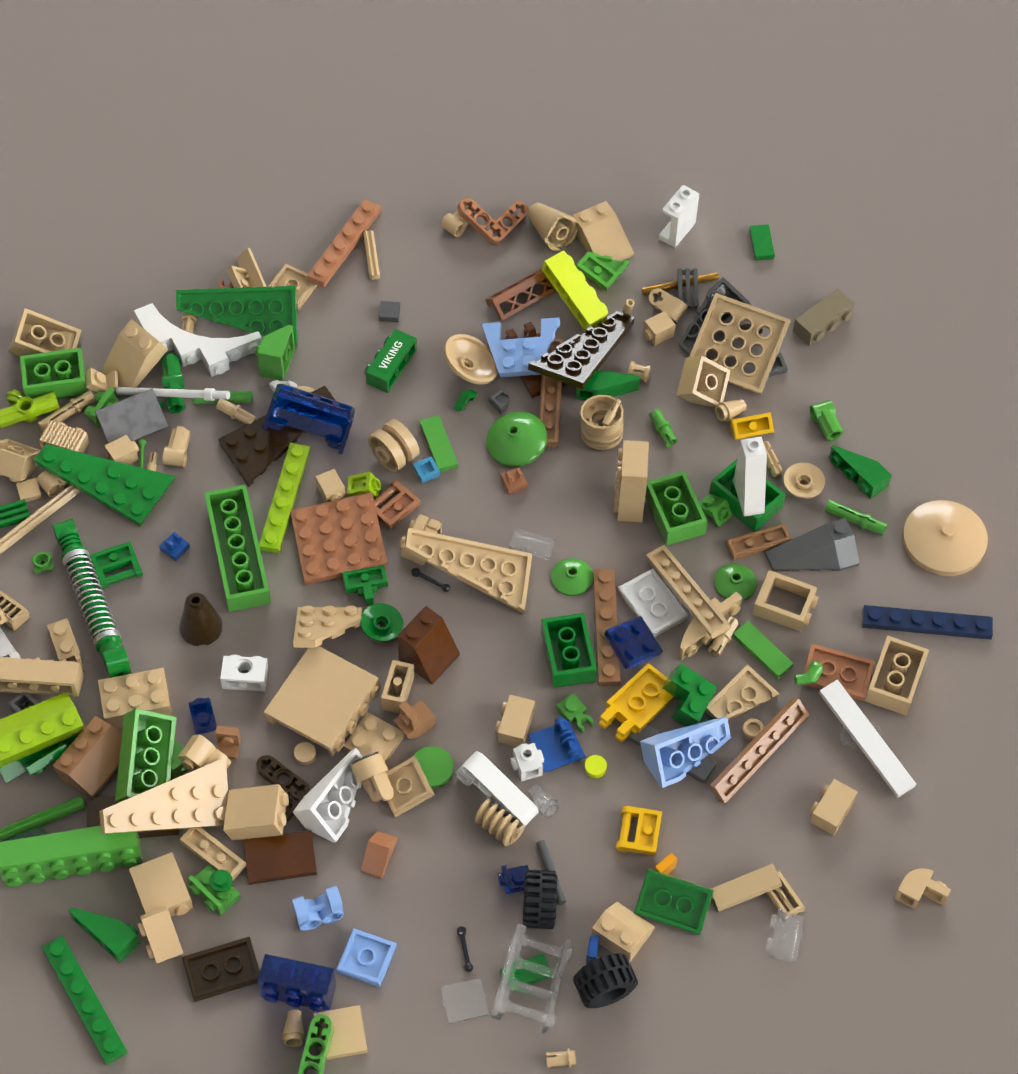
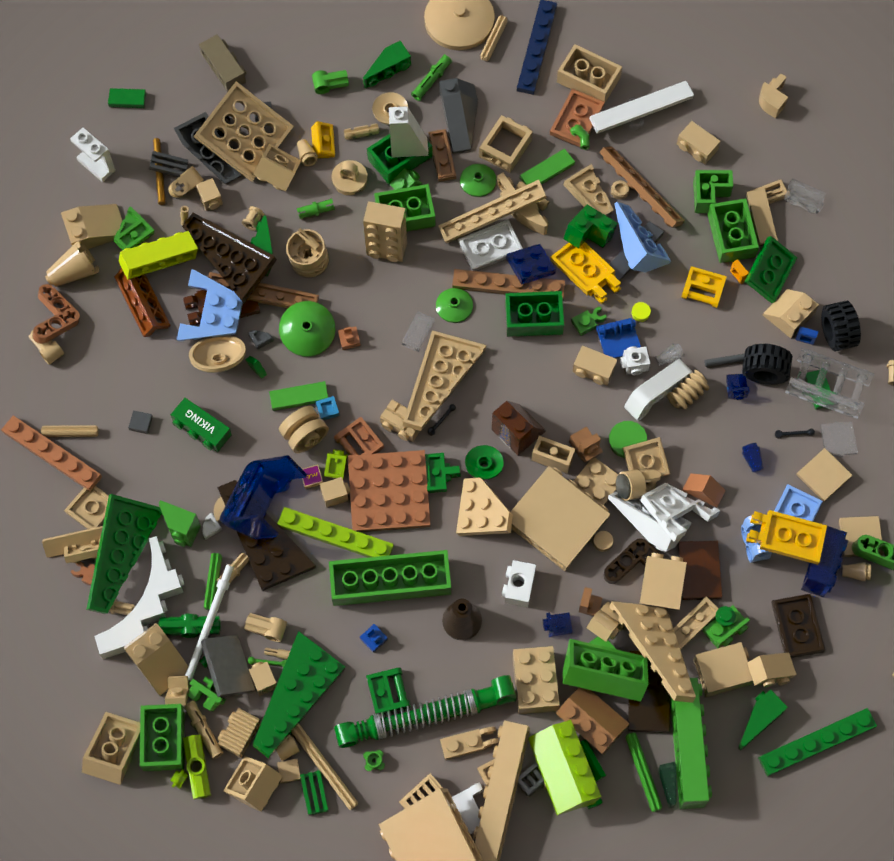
camera: 80 degrees left, 10 degrees up
(312, 927) = (788, 536): none -> yellow tile
(347, 467) = (313, 476): none -> magenta tile
(353, 812) = (670, 503): none -> white wing
(413, 984) = (824, 475): none -> tan tile
(425, 902) = (753, 456): none -> clear blue cone
(710, 455) = (349, 177): none -> tan tile
(717, 852) = (732, 230): none -> bright green brick
(768, 817) = (709, 185): none -> bright green brick
(926, 575) = (493, 38): none -> tan axle

